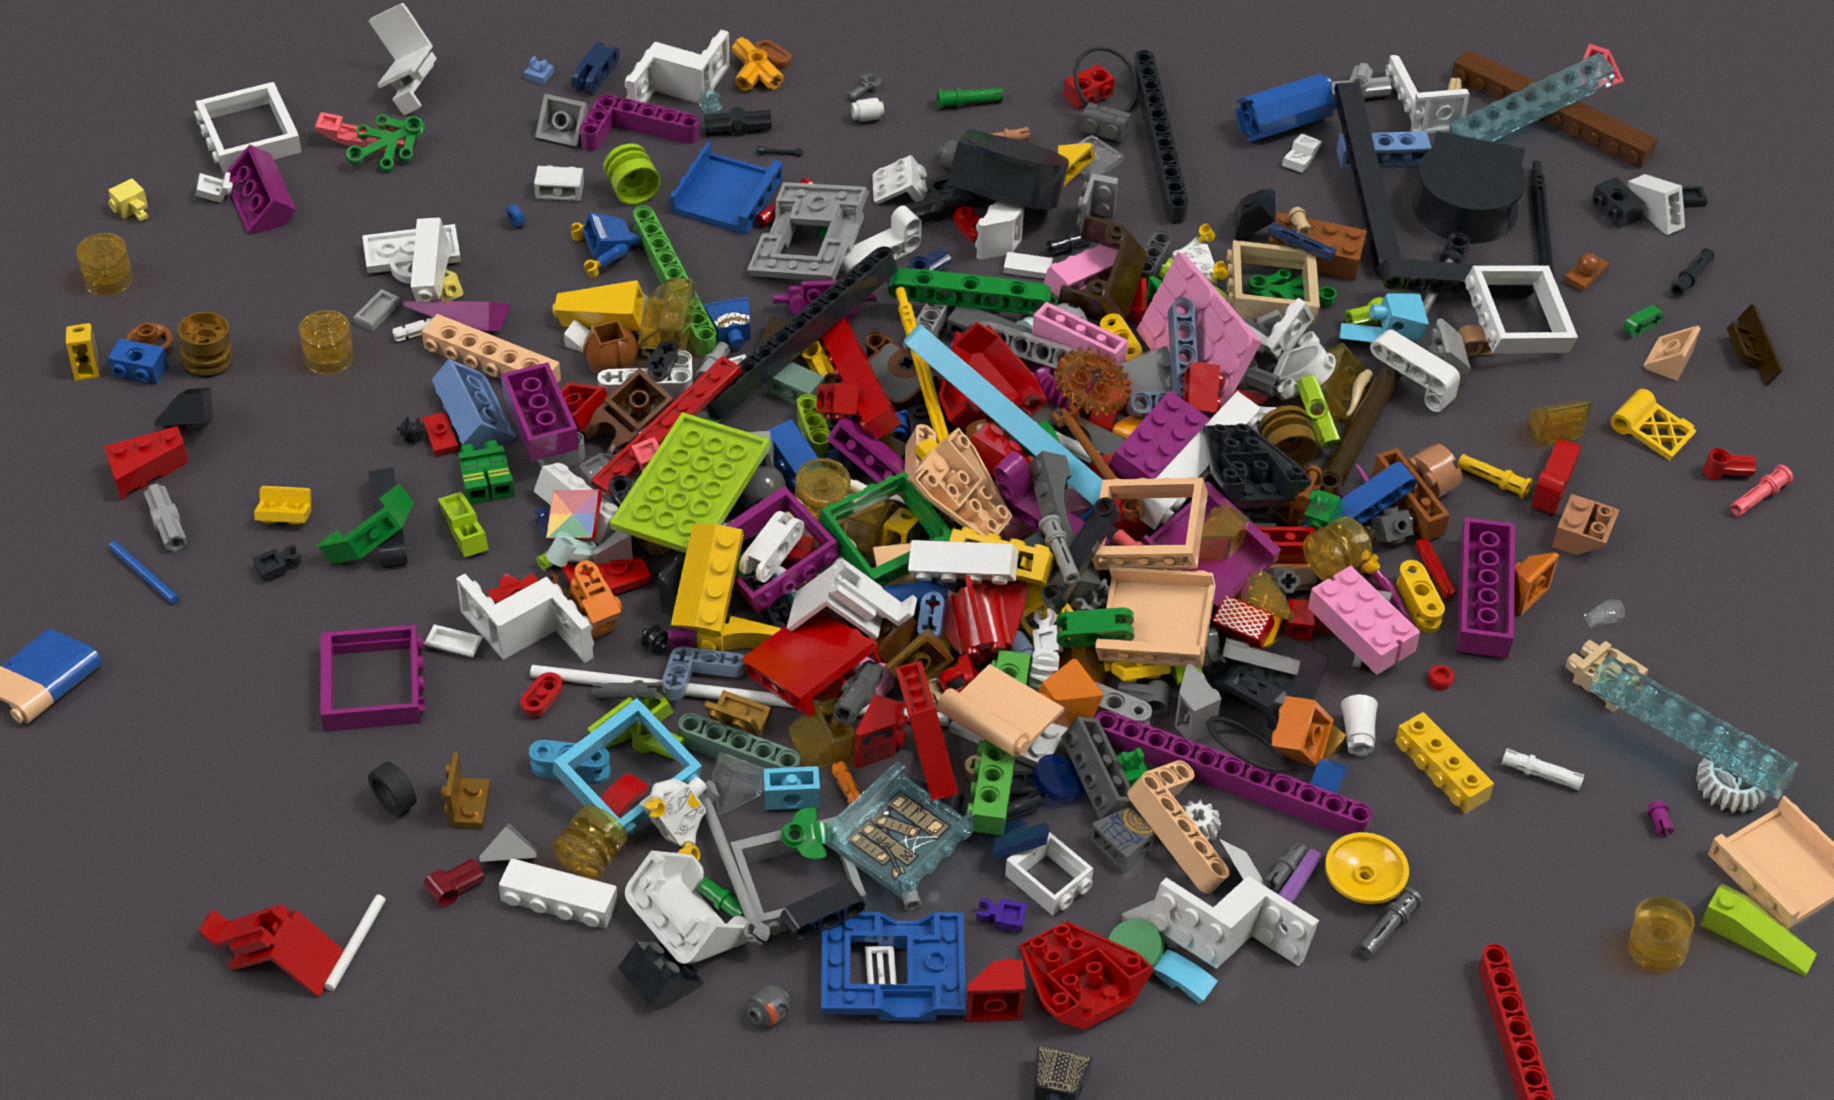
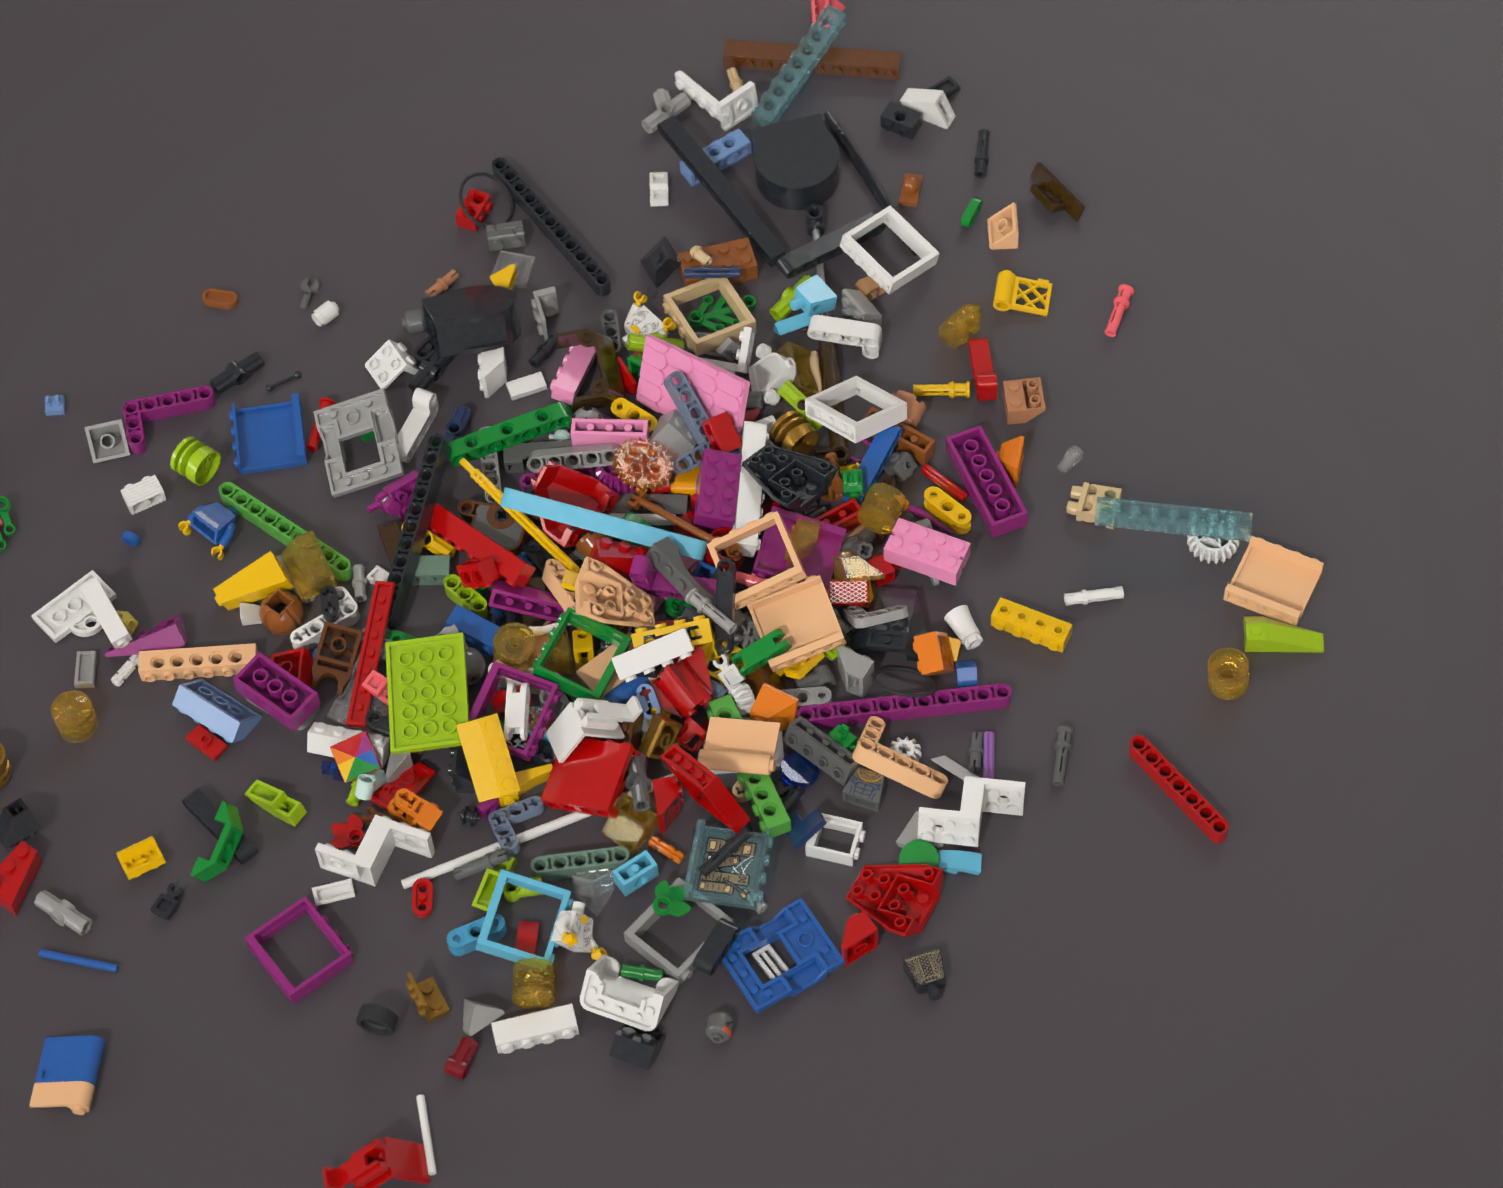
camera: 25 degrees left, 10 degrees up
(411, 429) = (185, 751): black wheel -> none
(482, 465) = (263, 755): green hips -> none
(595, 67) = (97, 380): dark blue piece -> none
(679, 71) = (166, 353): white bracket -> none
(709, 101) = (206, 367): clear light blue plate -> none
(730, 321) = (350, 543): blue torso -> none
(739, 713) = (565, 838): pearl gold bracket -> none
(753, 925) = (687, 981): light grey hinge -> none
(755, 67) = (217, 322): light orange piece -> none
(908, 812) = (731, 846): none -> black pin
(958, 97) = (384, 267): green pin -> none
(966, 221) = (462, 372): red plate -> none
(1007, 915) = (826, 882): dark purple plate -> none
(1286, 107) = (628, 157): blue brick -> none
(1336, 422) = (819, 409): none -> white window
(1370, 858) = (1032, 718): yellow dish -> none
(1440, 677) = (993, 563): red tile -> none
(1660, 817) = (1180, 587): magenta pin -> none
(1723, 463) = (1084, 301): red piece -> none

